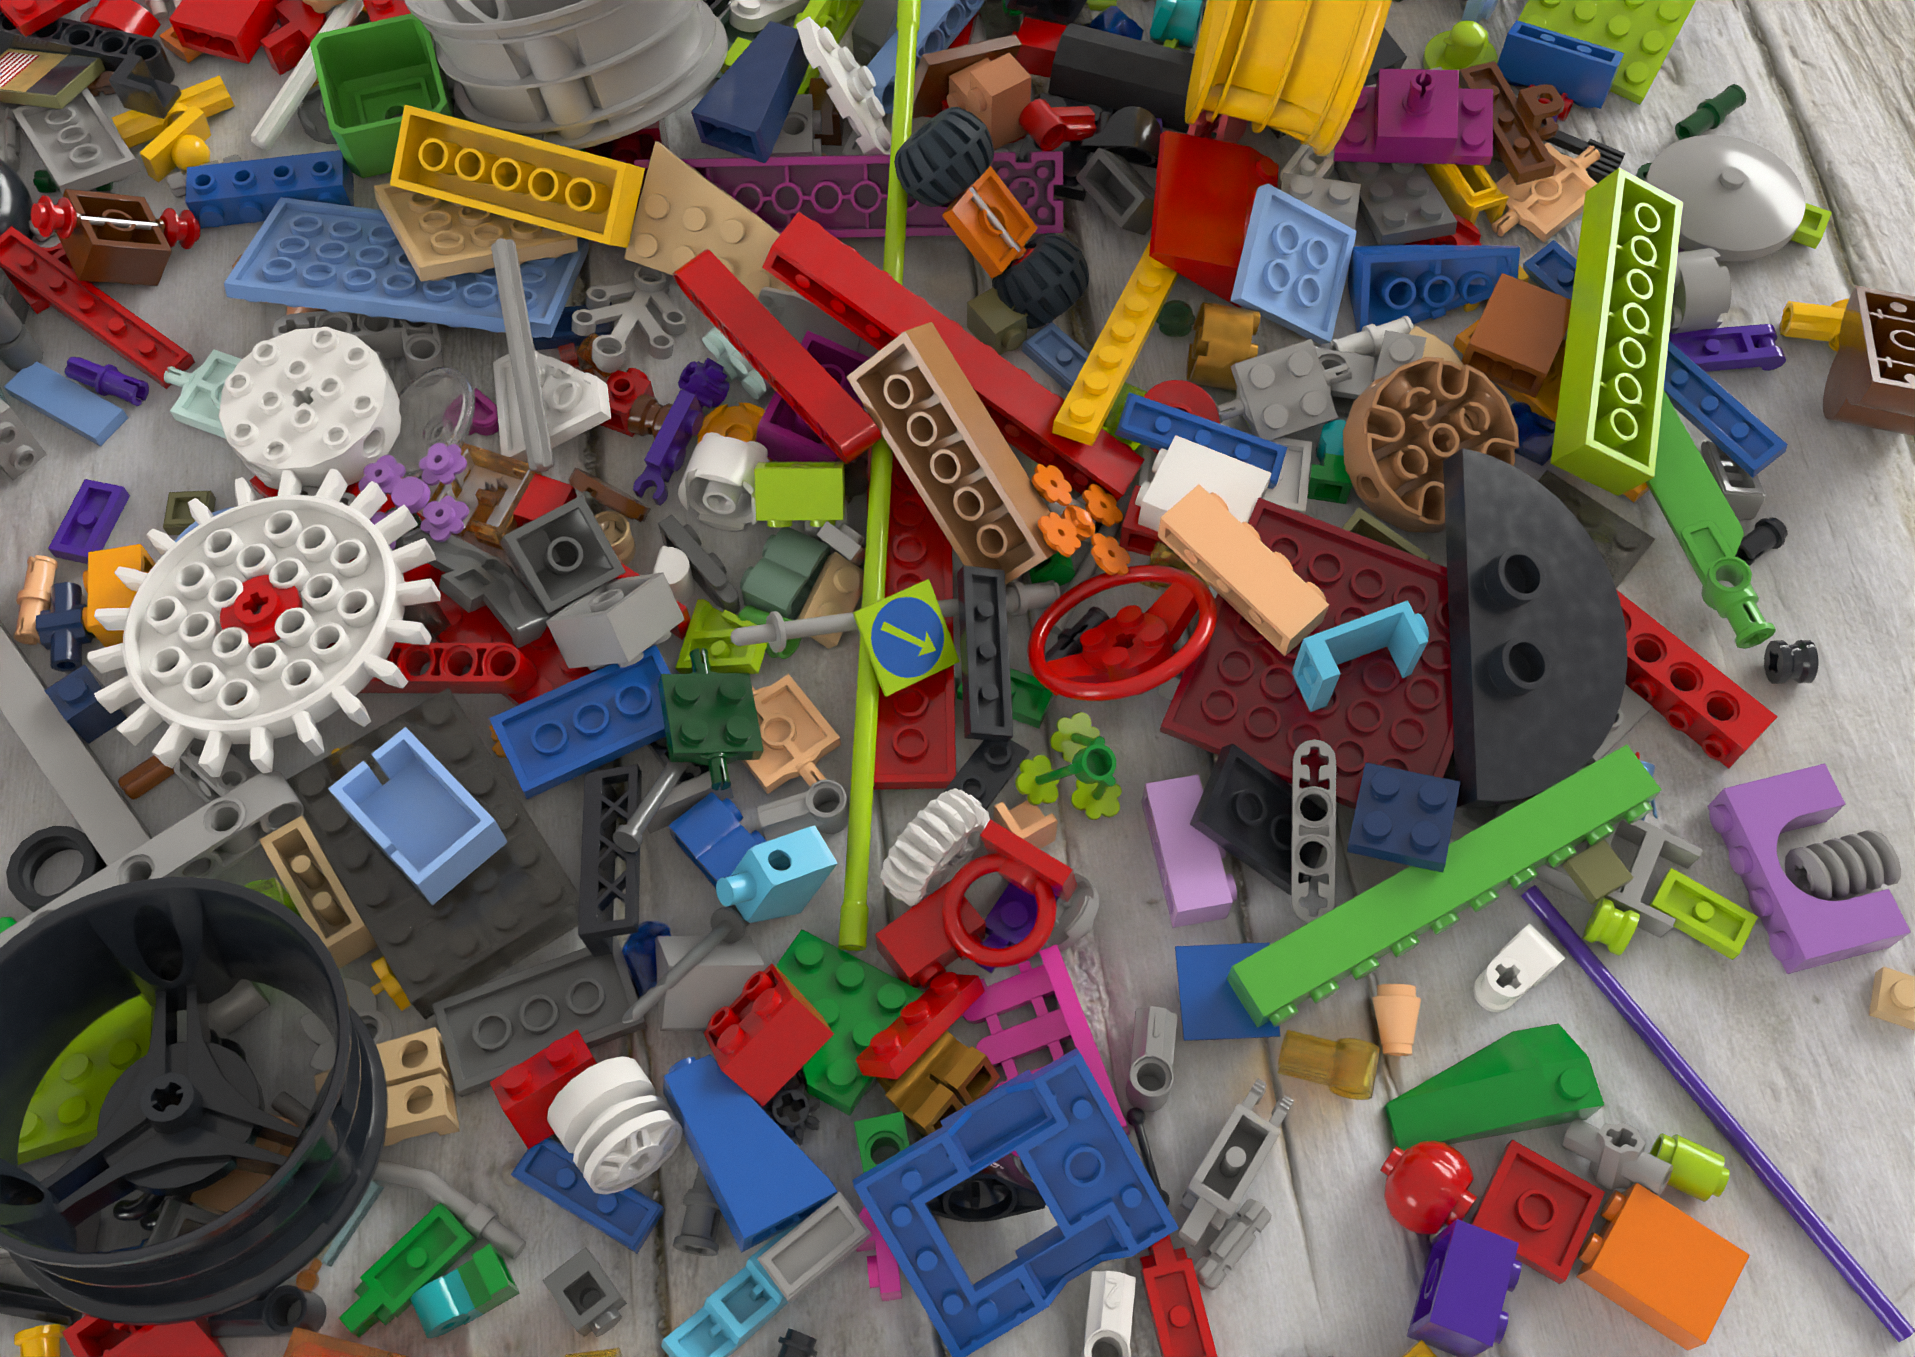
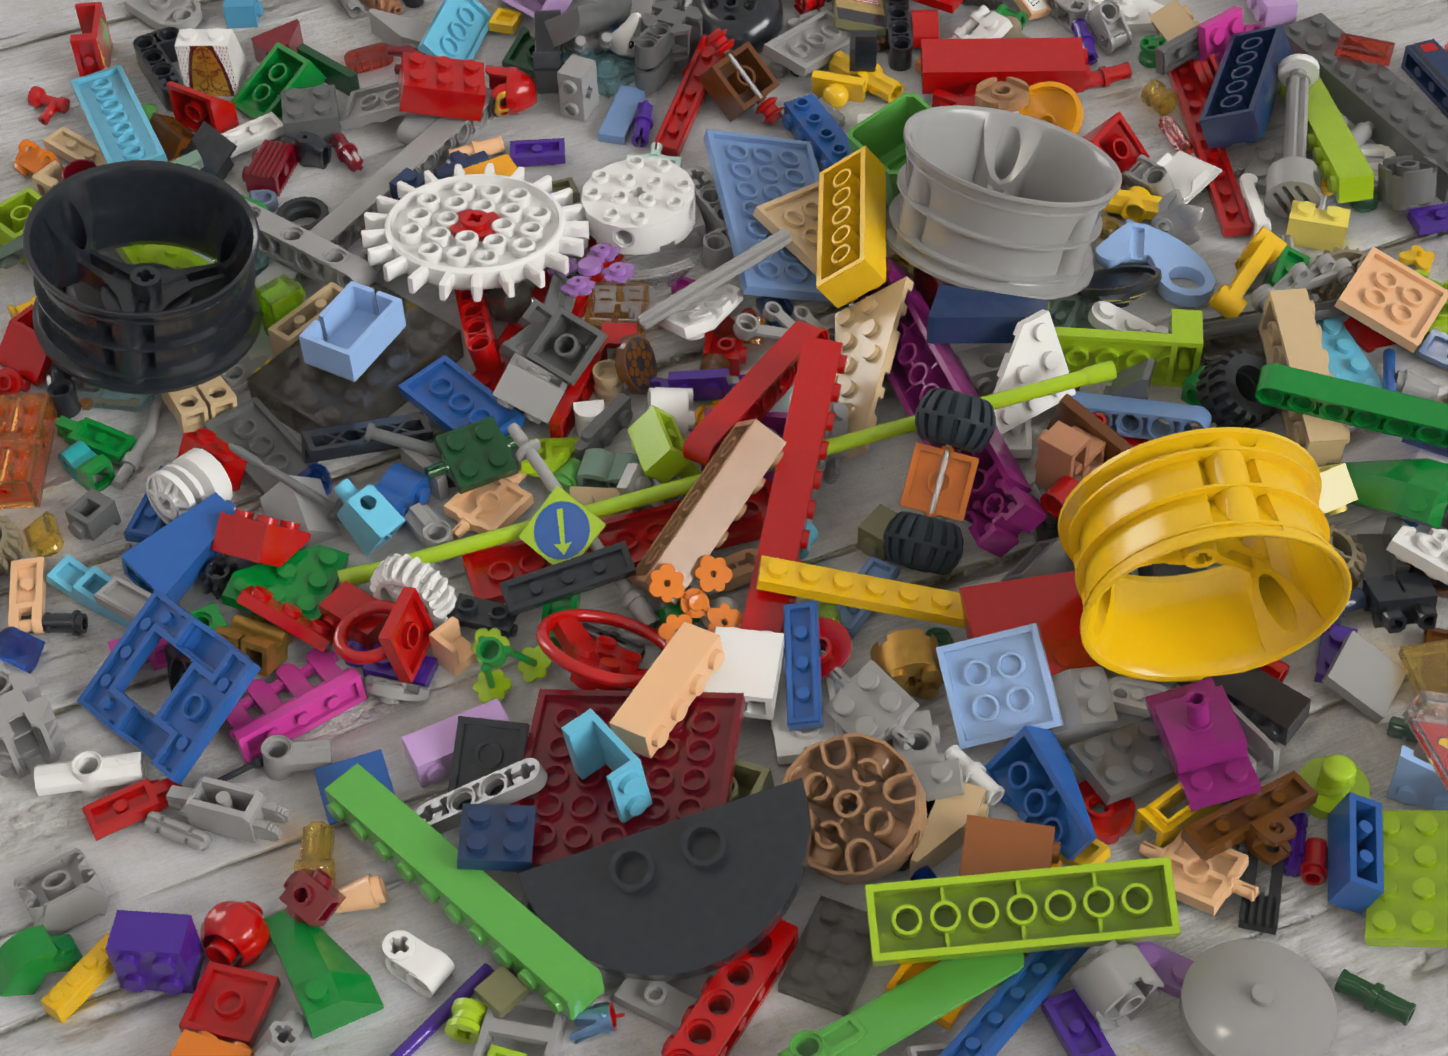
camera: 75 degrees right, 15 degrees down
(1413, 1070) = (311, 896): none -> dark red brick

